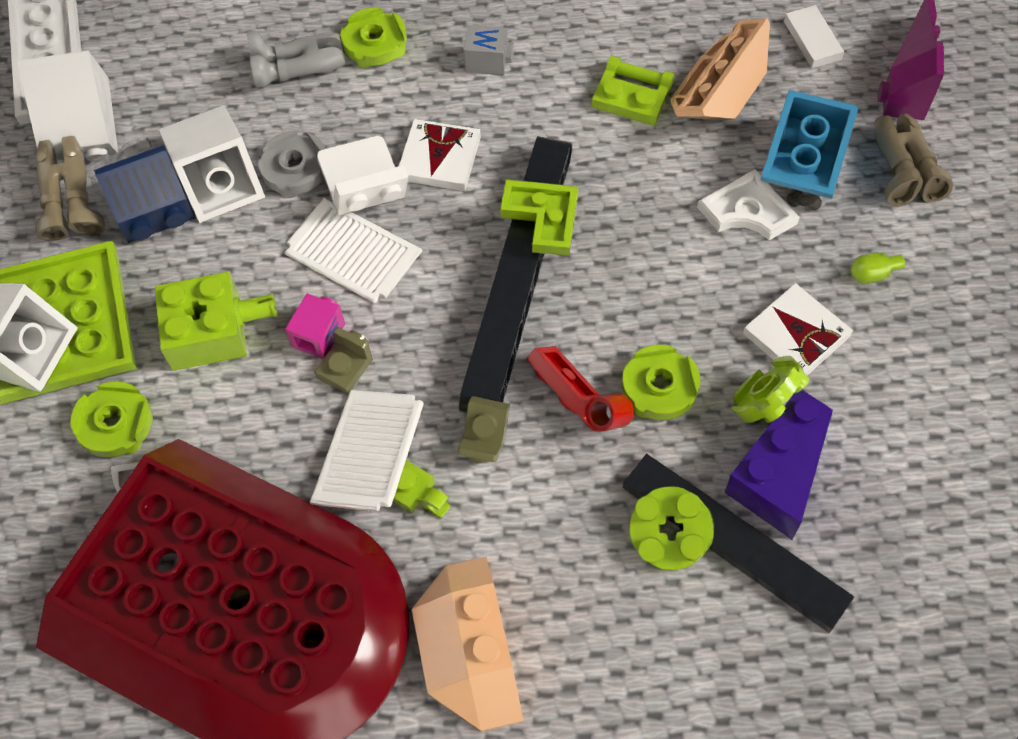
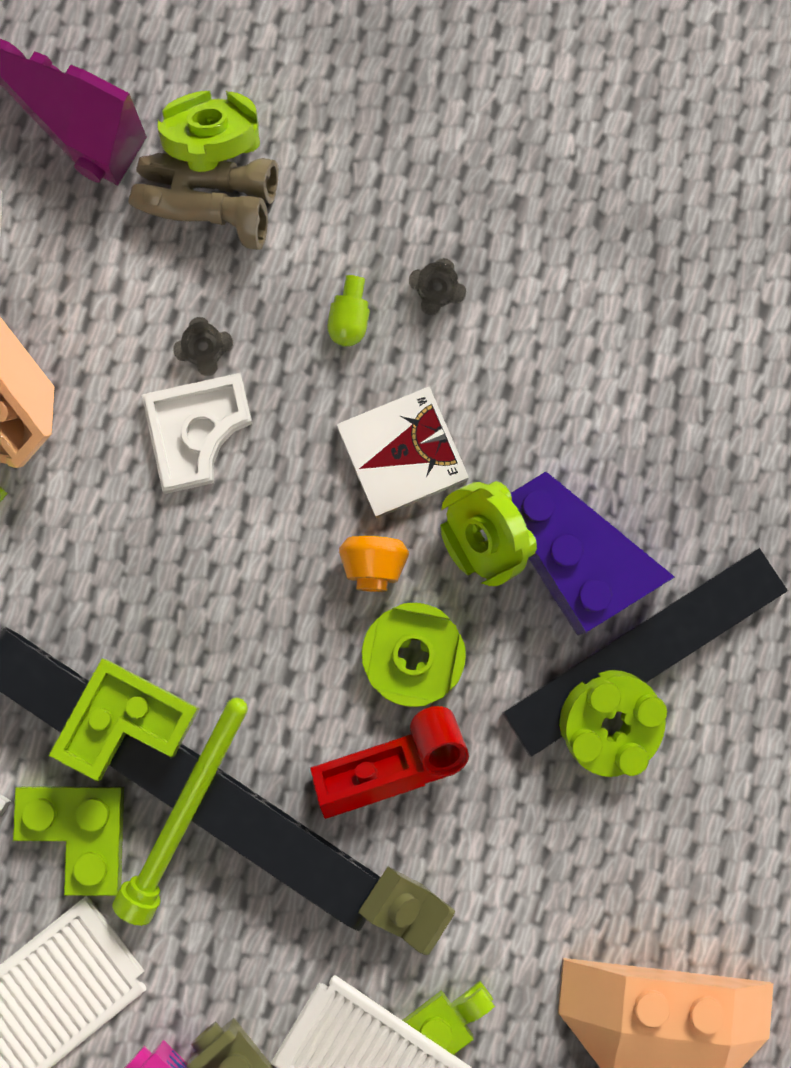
camera: 80 degrees left, 20 degrees up
(432, 273) = (140, 897): none -> lime piece
(465, 236) = (88, 822): none -> lime plate
(713, 333) = (373, 561): none -> light orange cone
(810, 144) = (148, 313): dark azure slope -> none
(931, 306) = (437, 272): none -> clear smoke plate
(951, 140) = (209, 129): none -> lime plate

